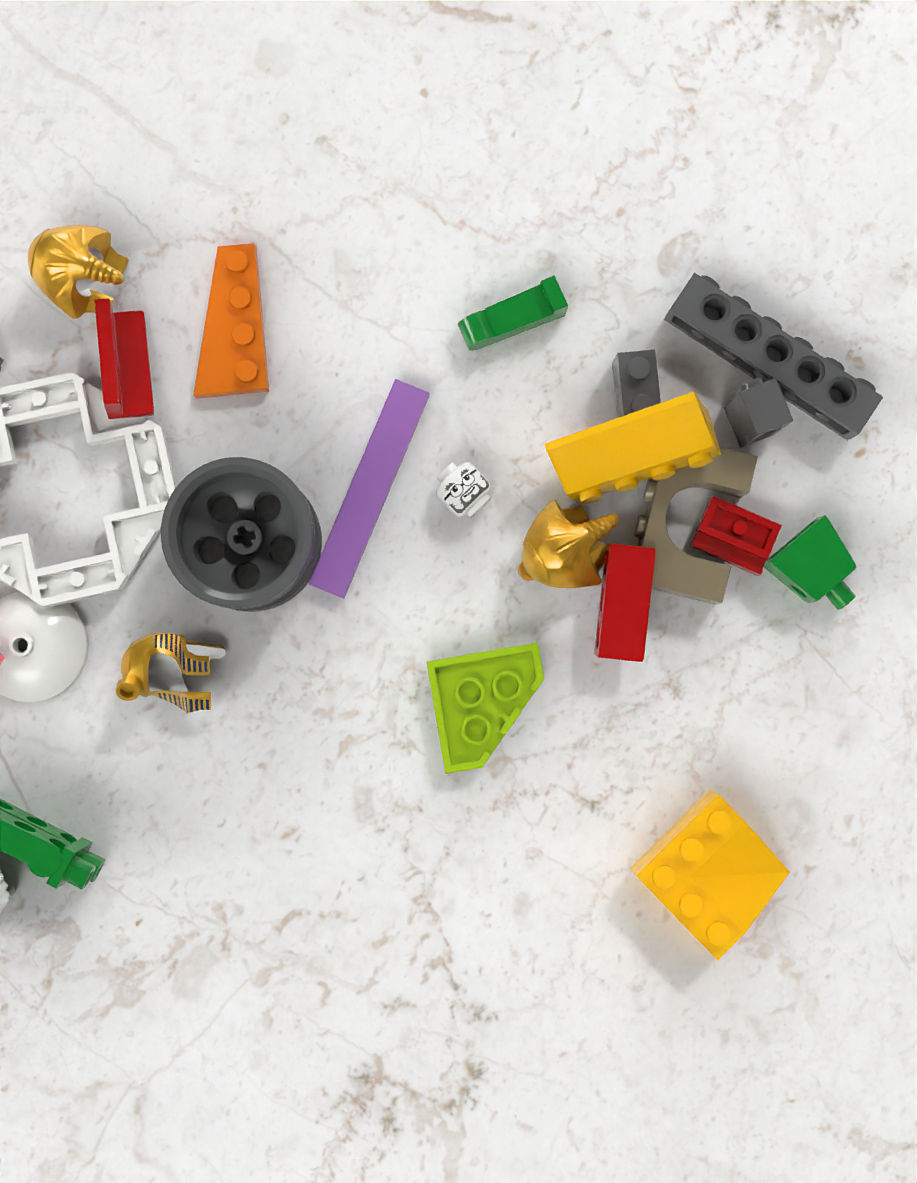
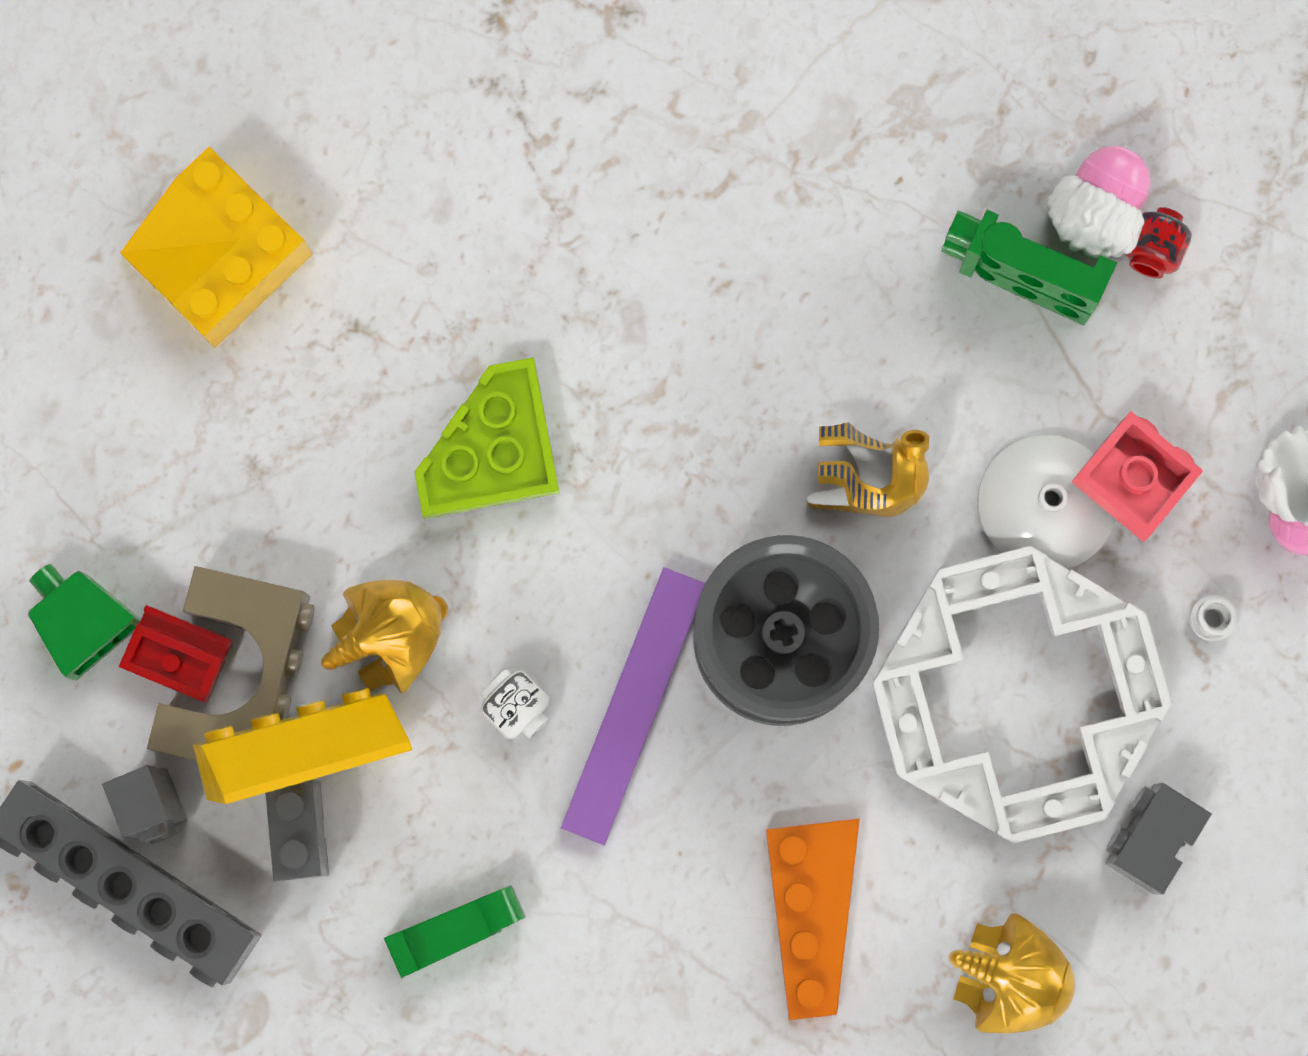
camera: 175 degrees left, 5 degrees down
(123, 362) = (946, 858): red panel -> none
(624, 602) = (315, 565): red panel -> none

